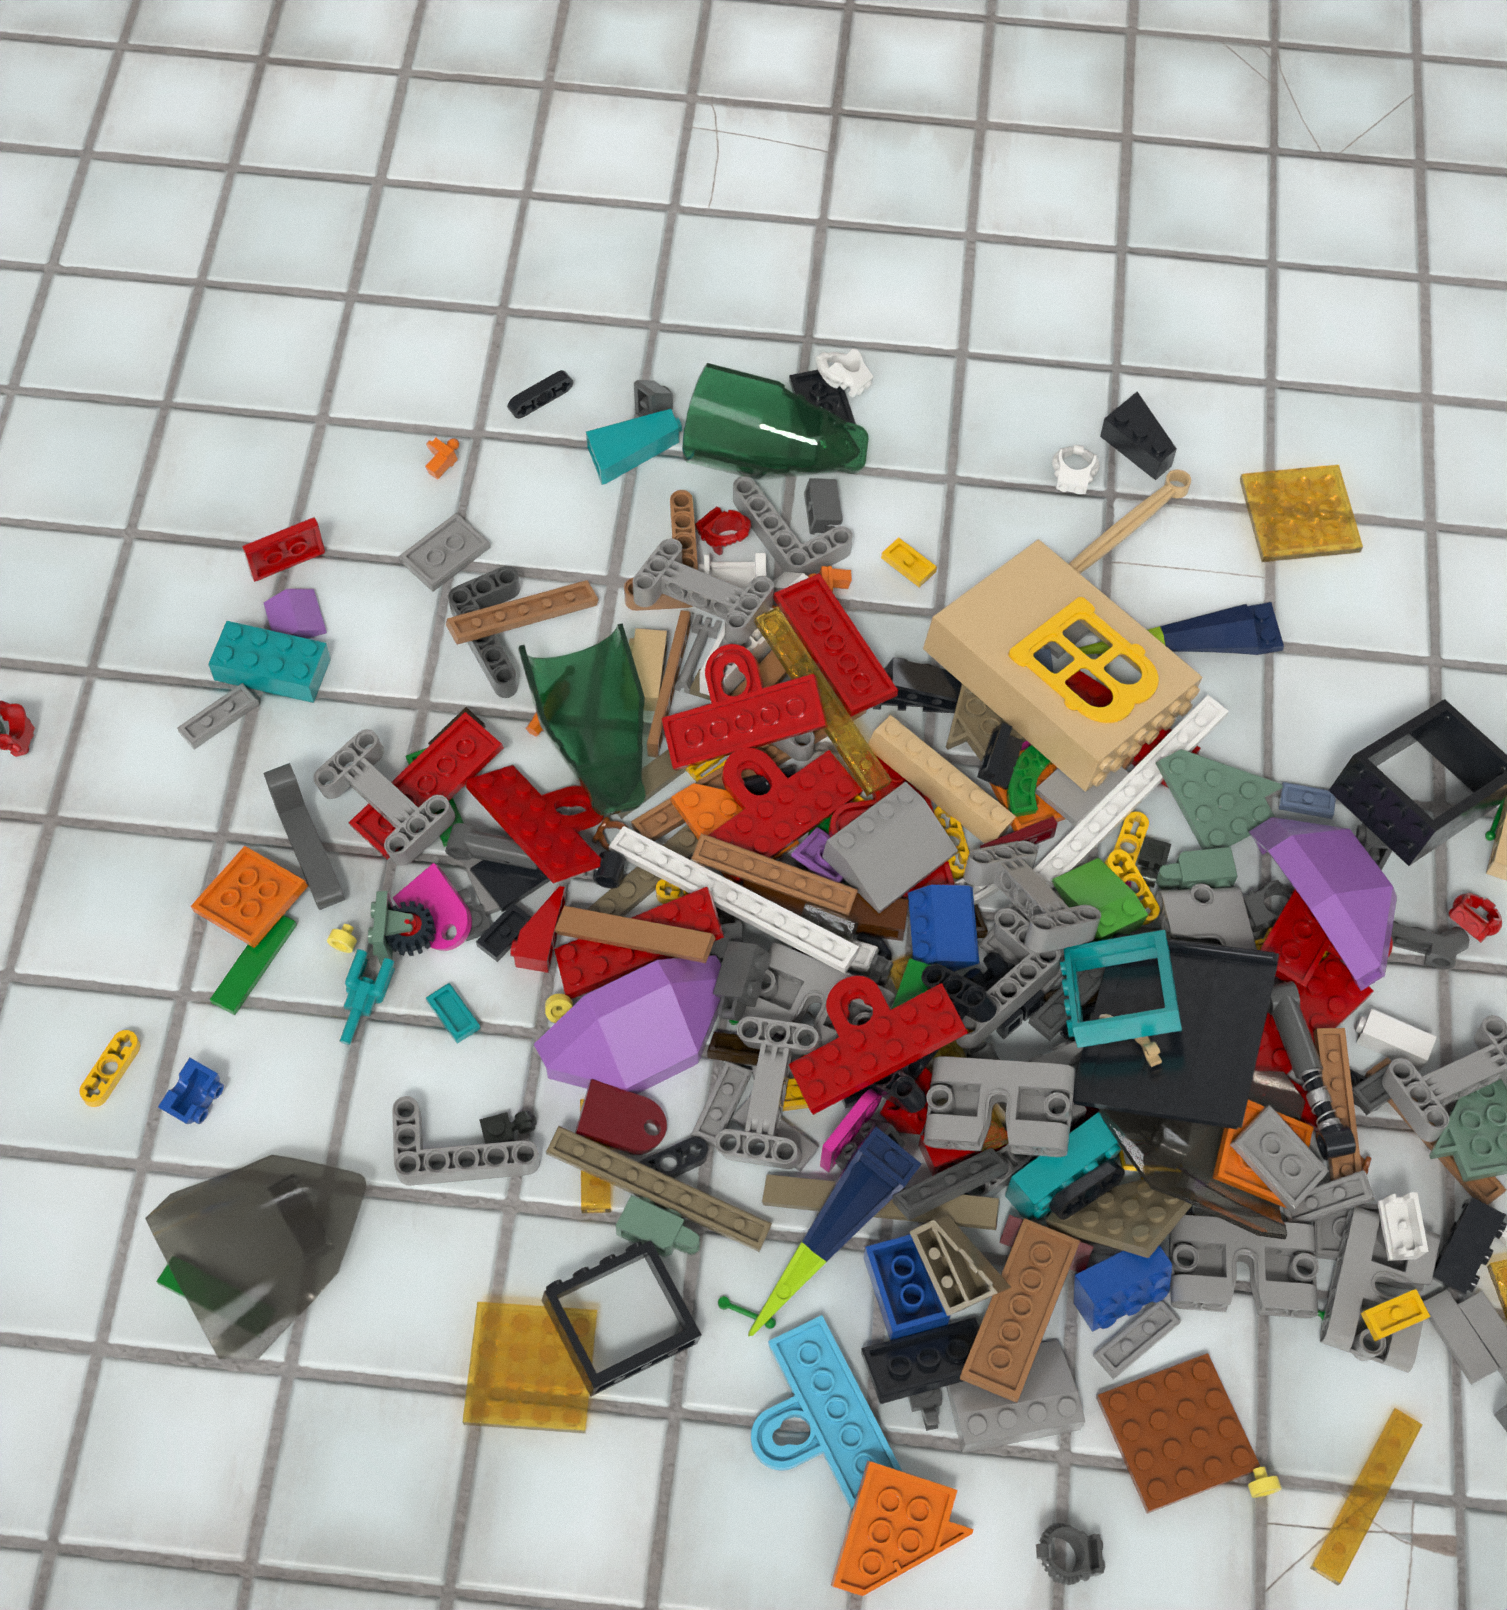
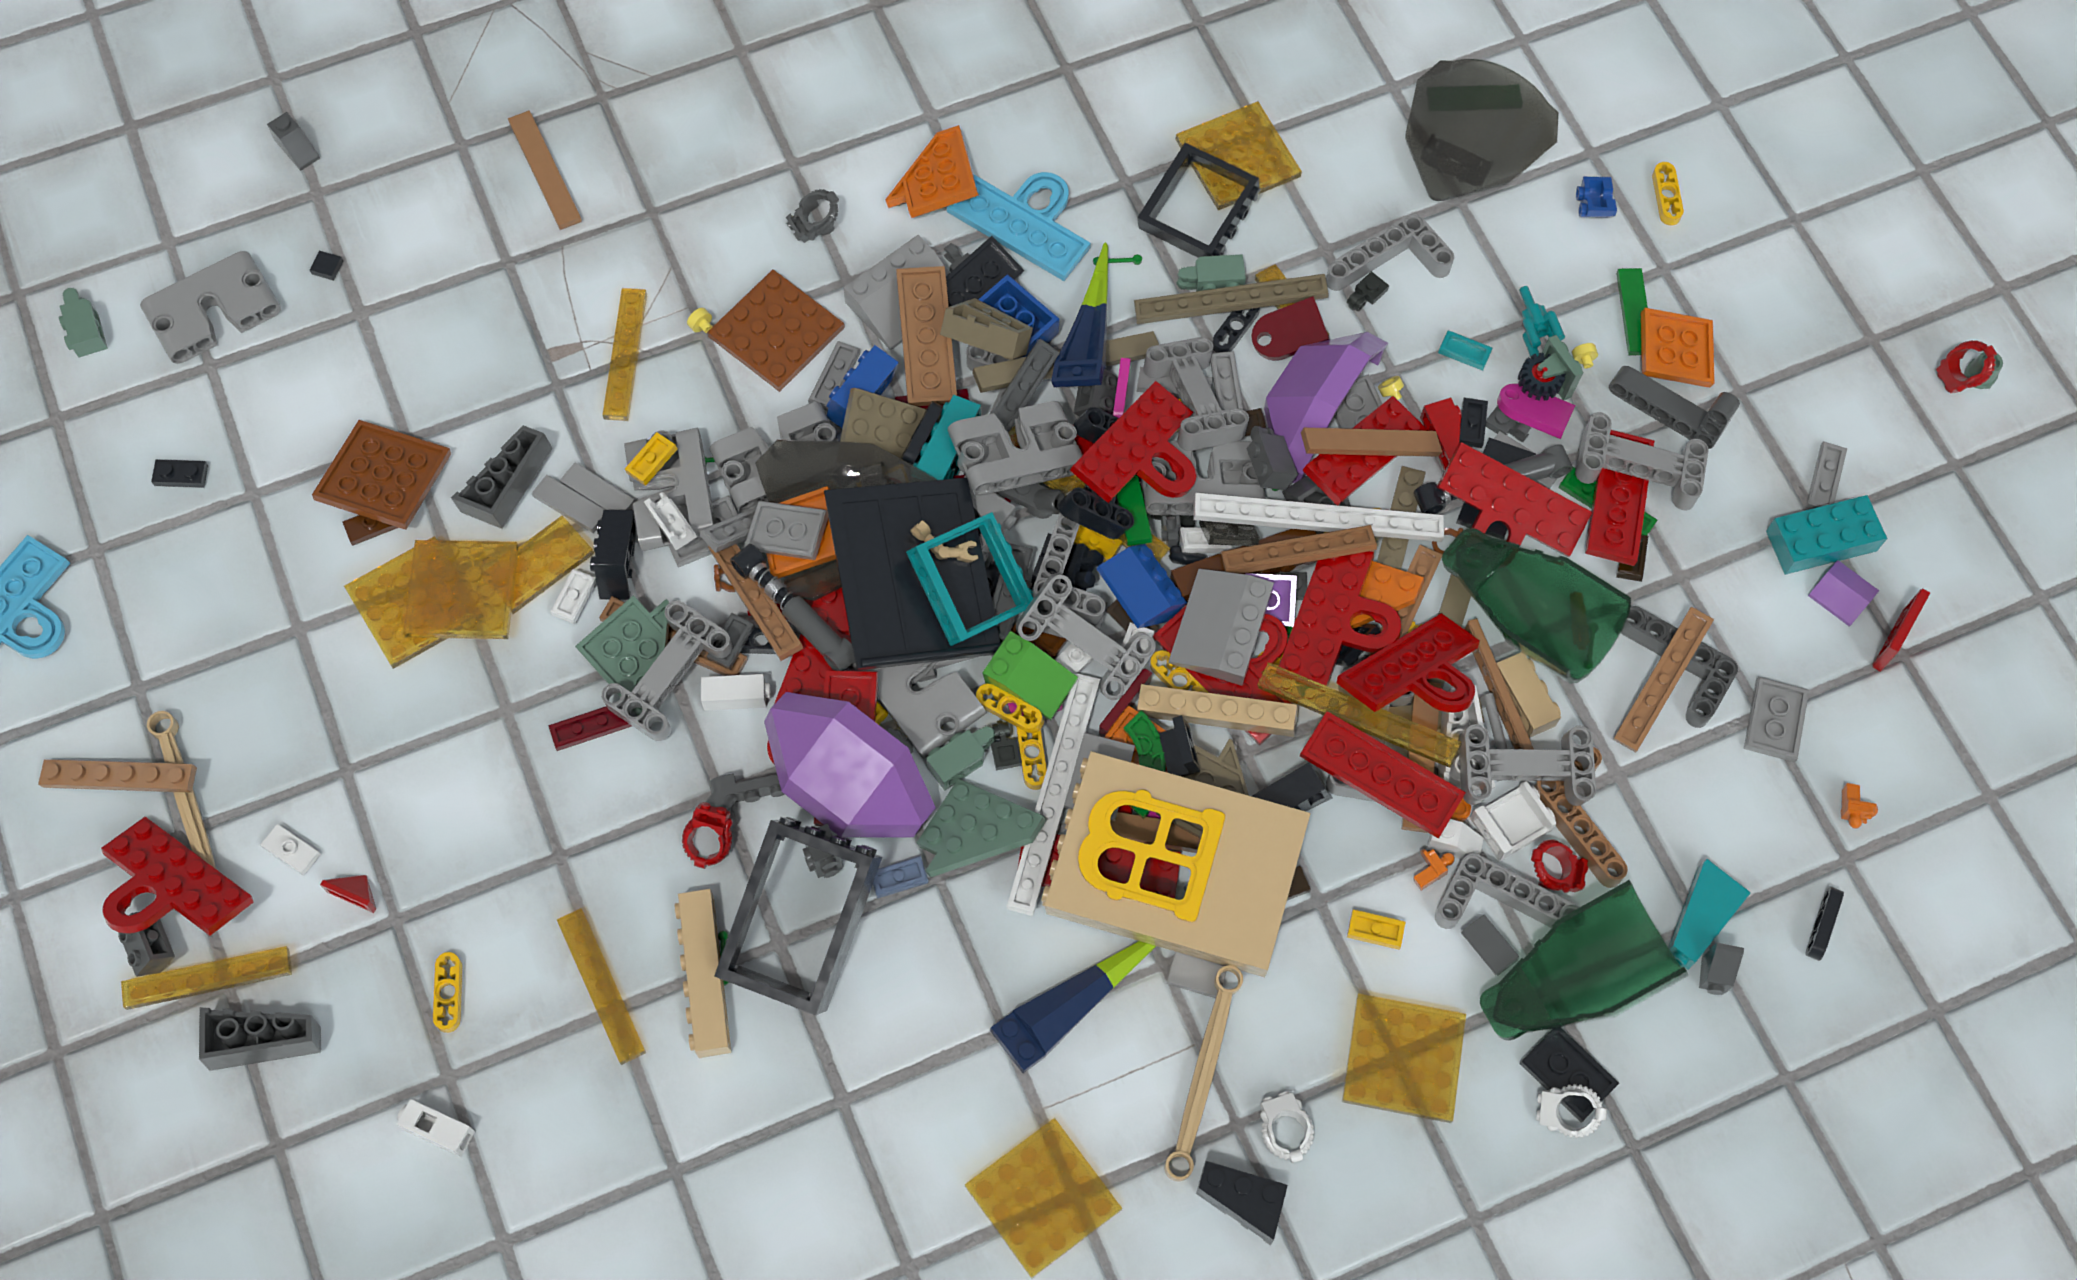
camera: 150 degrees right, 5 degrees up
(948, 467) = (1404, 1058): none -> clear yellow plate

